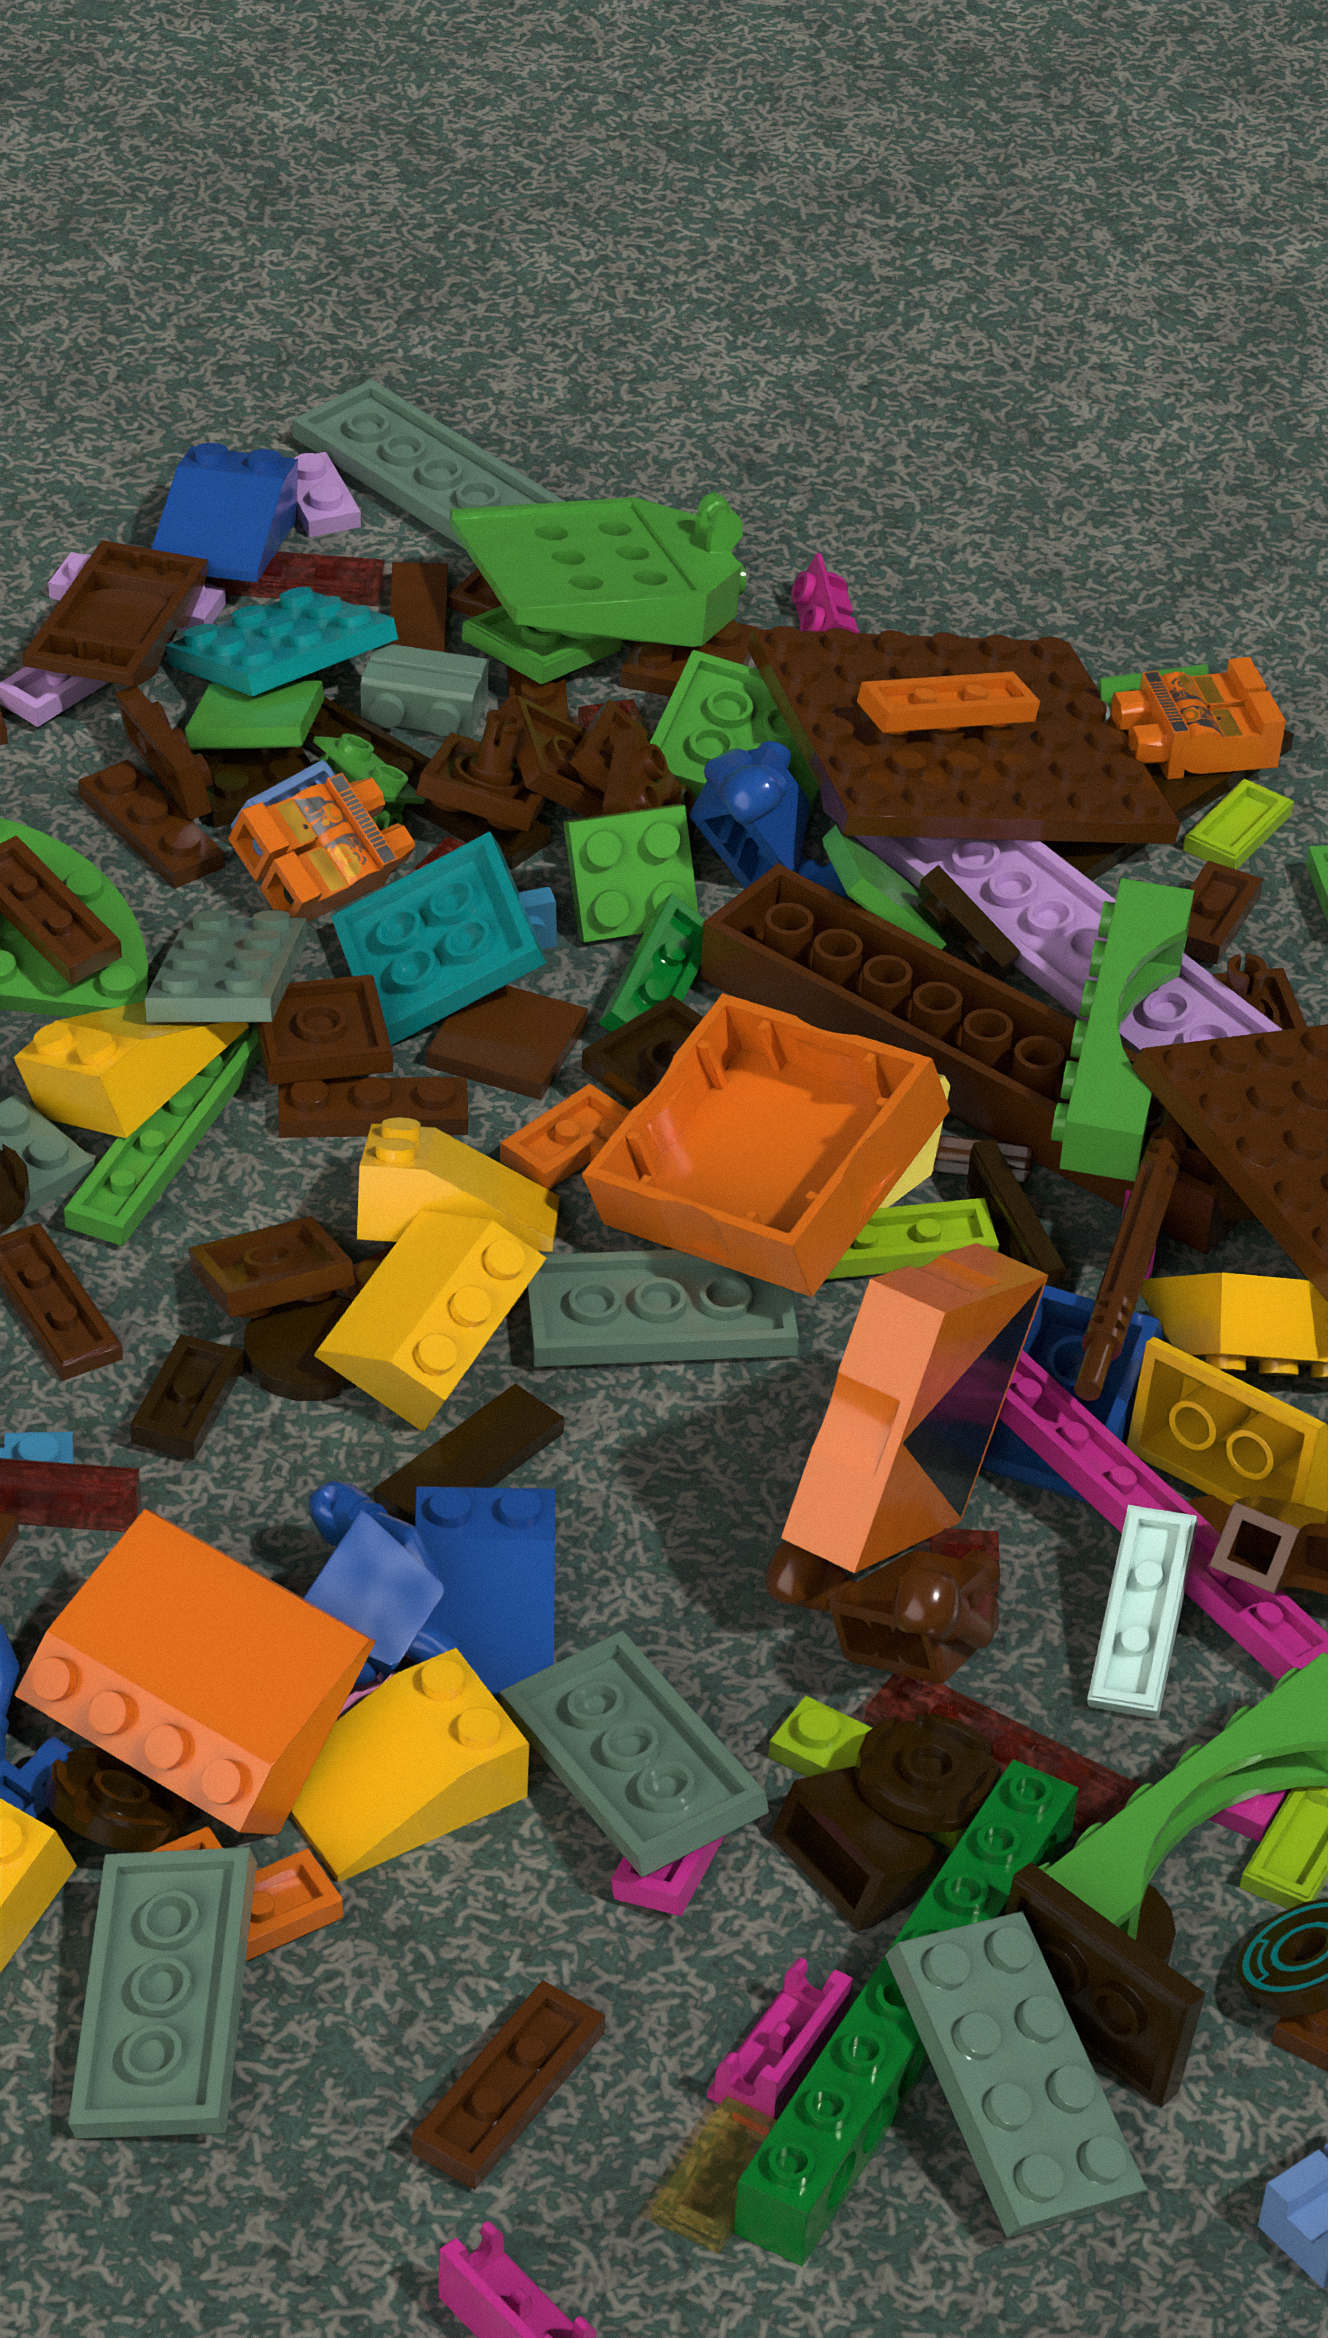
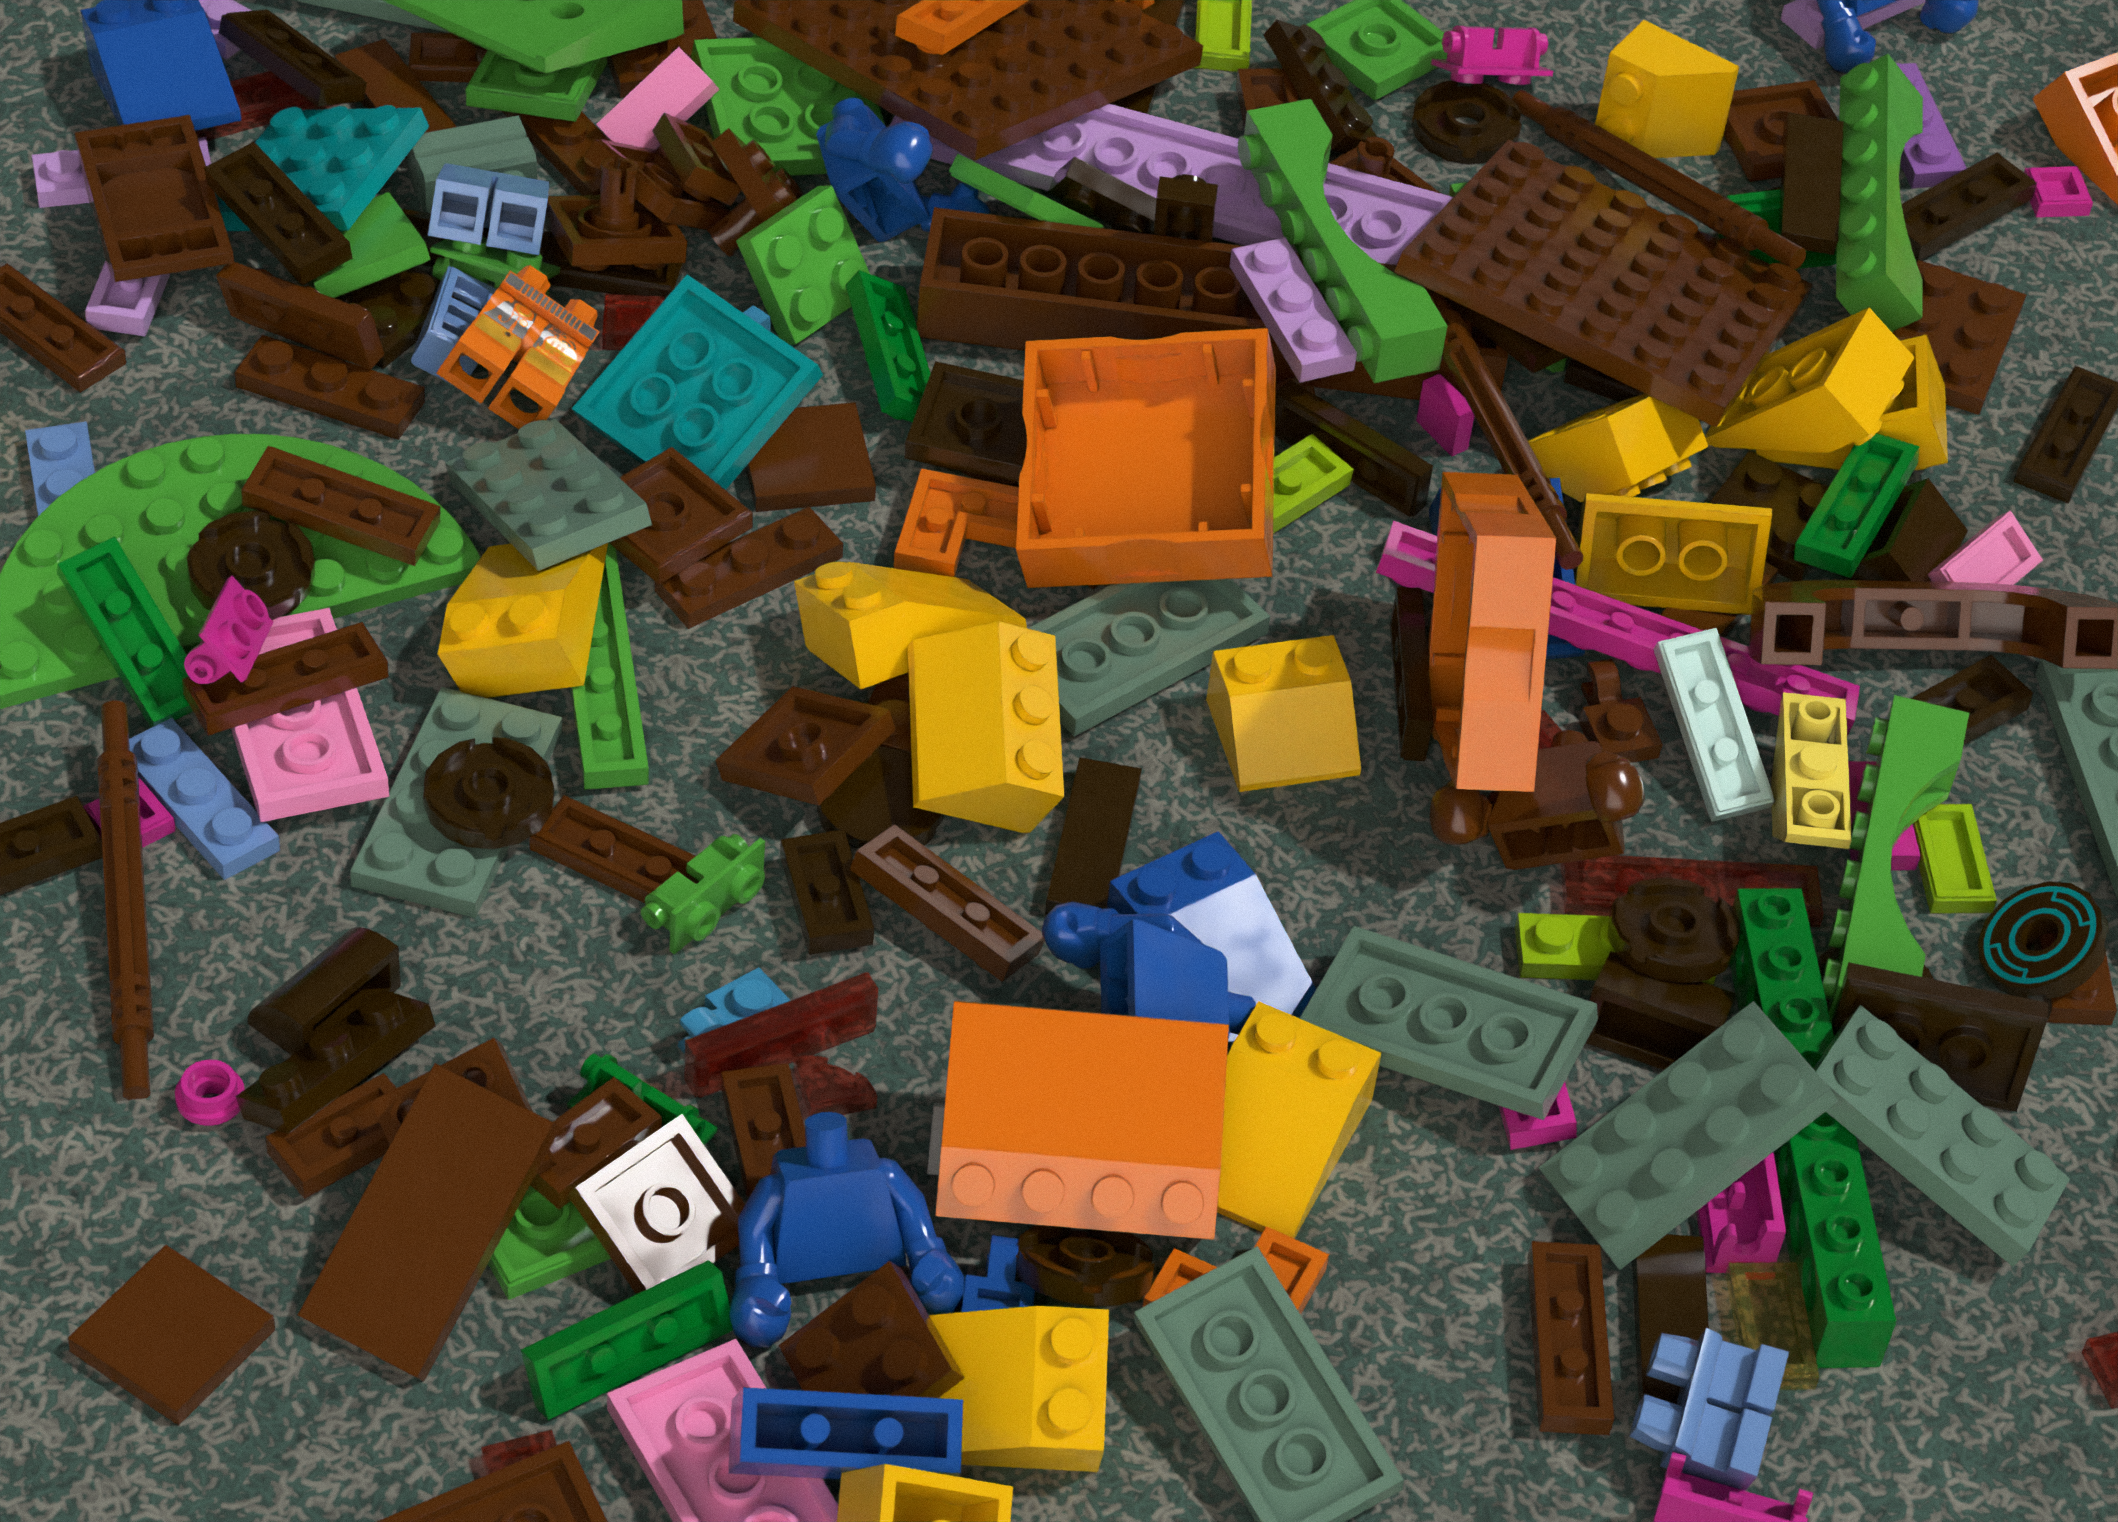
camera: 35 degrees left, 5 degrees up
(48, 1560) = (832, 1087): none -> clear red tile
(110, 1346) = (726, 875): none -> bright green hinge
(195, 658) = (278, 213): none -> dark brown plate
(273, 1444) = (948, 902): none -> reddish brown plate
(344, 548) = (292, 57): none -> dark brown tile
(383, 720) = (479, 199): none -> medium blue hips
(570, 2206) = (1719, 1409): none -> medium blue hips
(621, 2127) = (1668, 1300): none -> dark brown tile
(633, 686) = (672, 88): none -> bright pink tile
(736, 1425) = (1284, 712): none -> yellow slope
(755, 1950) = (1687, 1134): none -> sand green plate
(992, 944) = (1185, 208): none -> dark brown plate
(1031, 1072) = (1293, 309): none -> lavender plate
(1065, 1579) = (1617, 723): none -> reddish brown plate
(1200, 1691) = (1811, 772): none -> light yellow slope
(1277, 902) = (1316, 78): none -> dark brown plate

